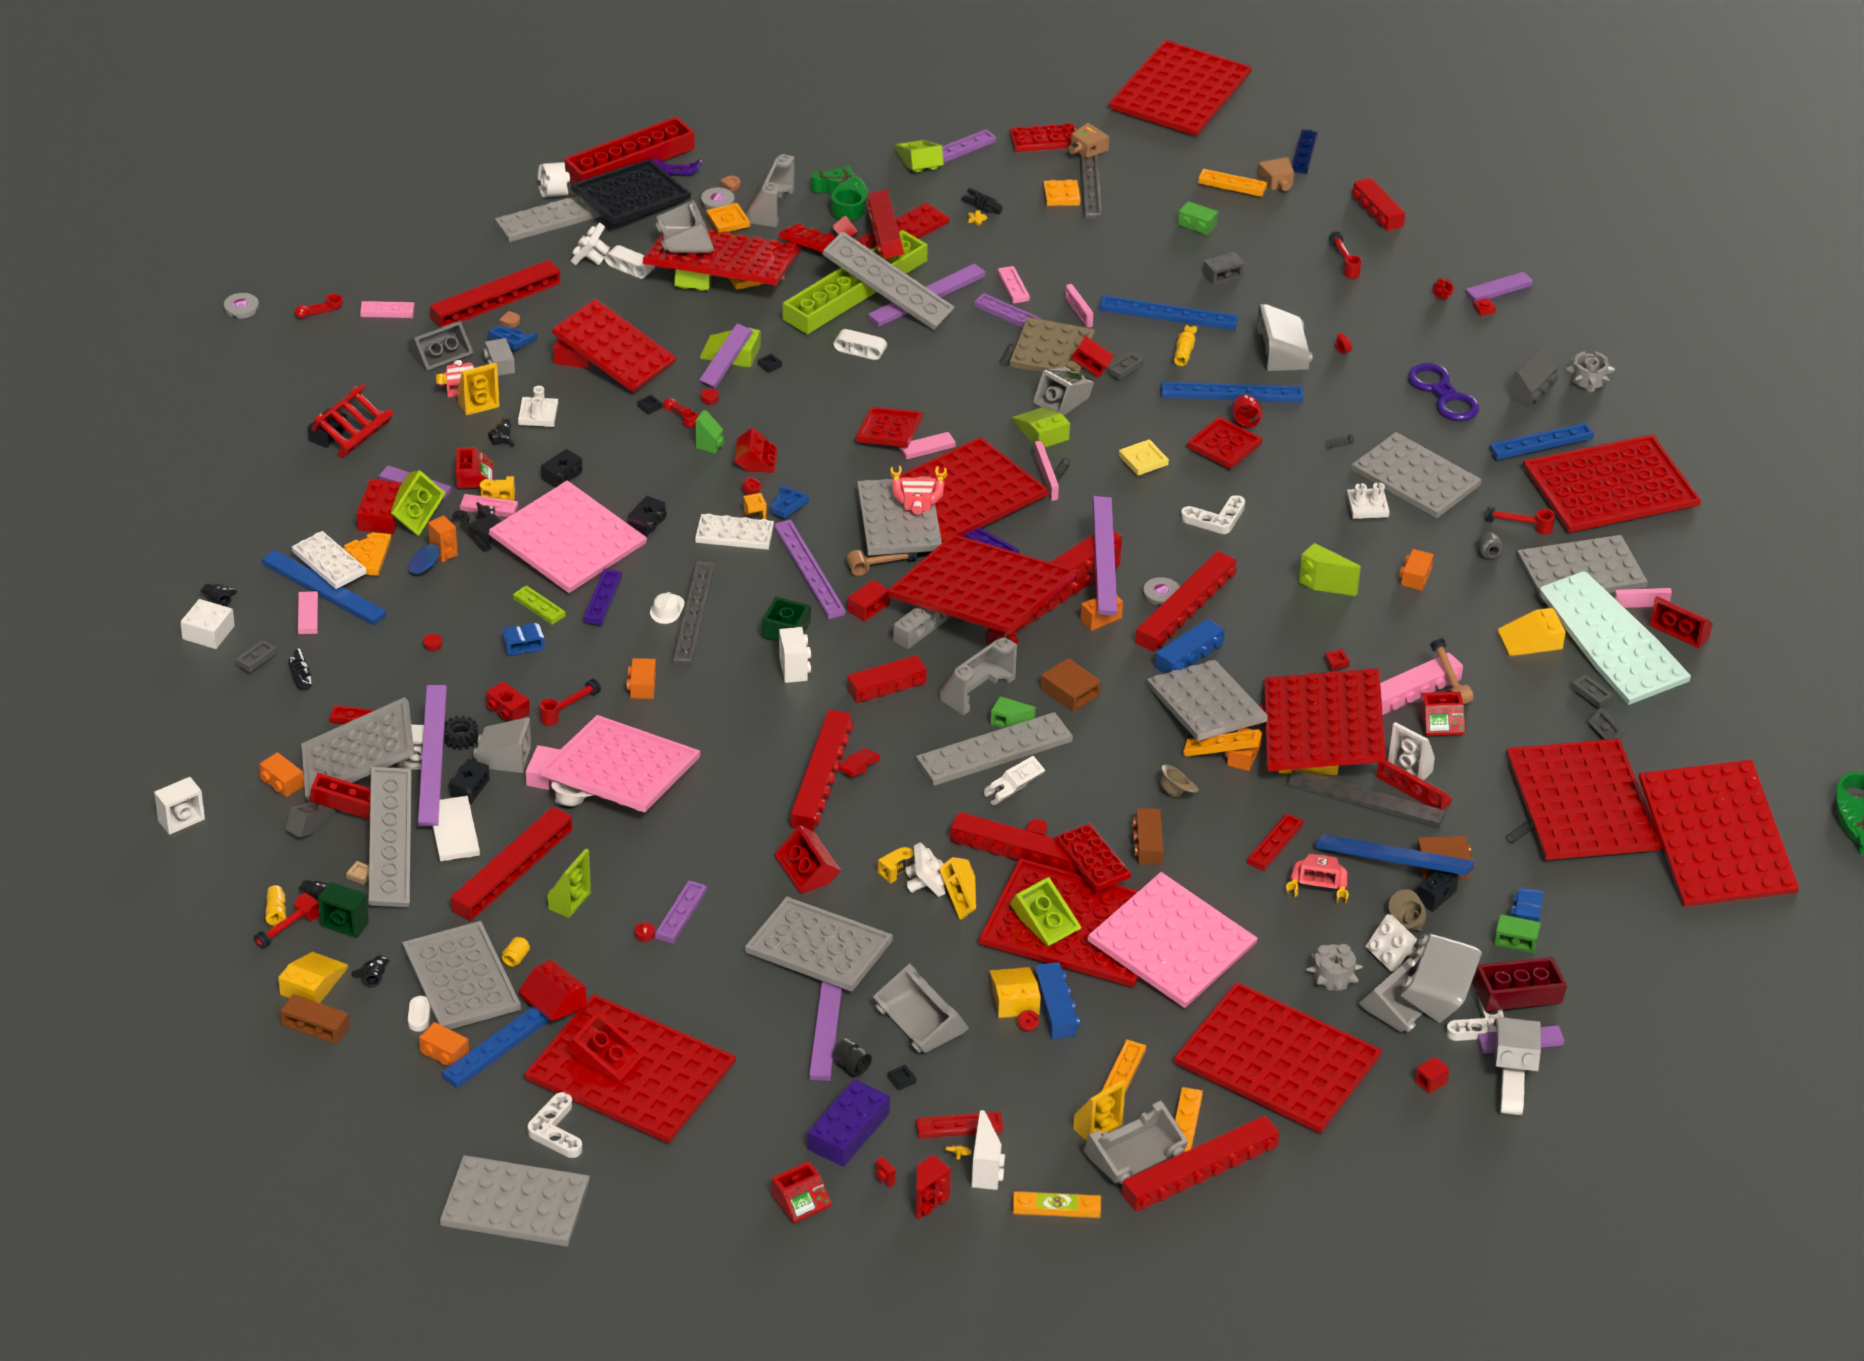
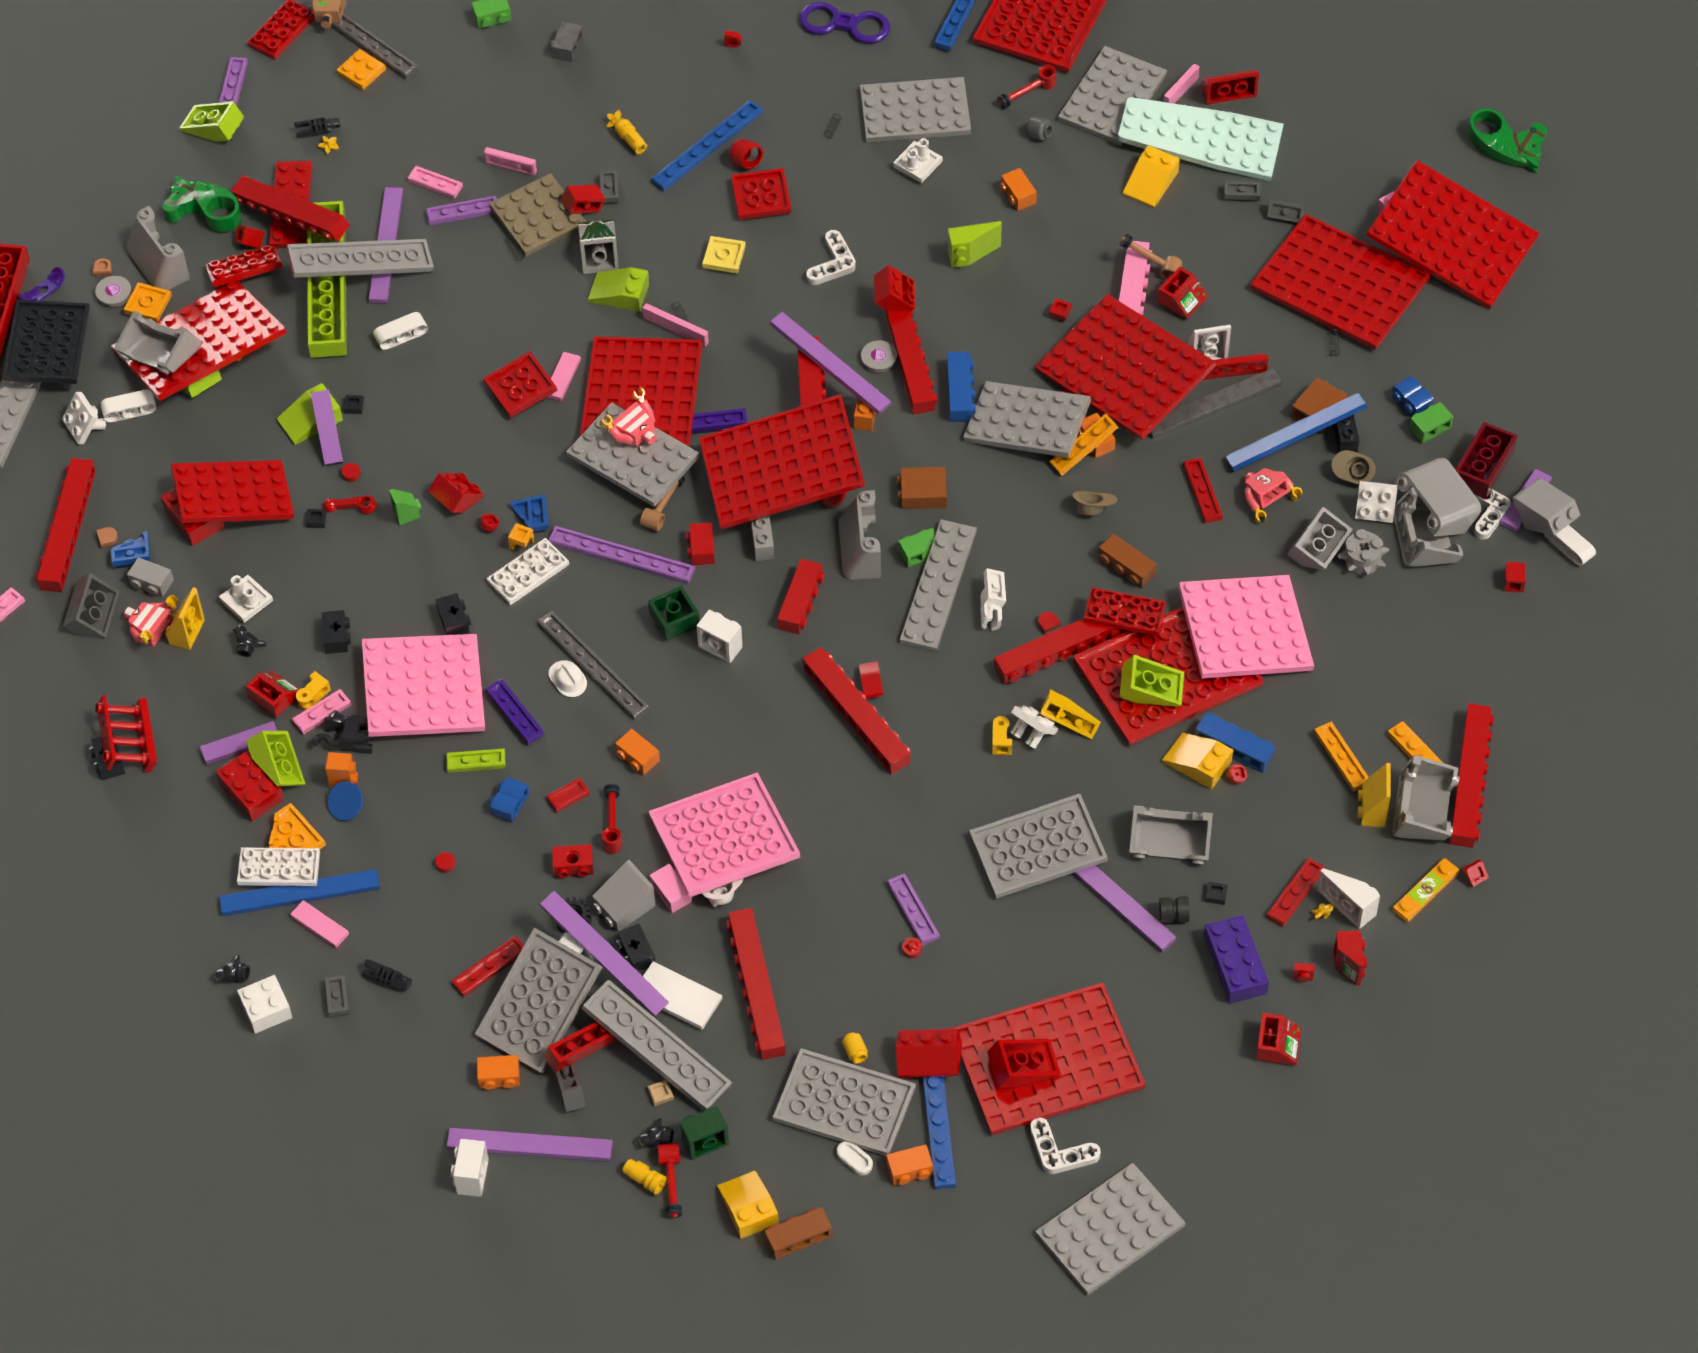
camera: 45 degrees left, 15 degrees up
(242, 833) = (535, 1144): none -> medium lavender tile
(372, 971) = (782, 1158): black animal -> none
(565, 668) = (568, 795): none -> red tile
(572, 887) = (827, 962): lime slope -> none
(807, 860) = (943, 790): red slope -> none
(1108, 1223) = (1475, 873): none -> plate
(1169, 312) = (575, 113): blue tile -> none
(1222, 553) = (894, 290): none -> red slope
(1278, 1057) = (1412, 652): red plate -> none
(1283, 339) = (690, 67): light grey windscreen -> none
(1309, 930) = (1320, 540): none -> light grey slope

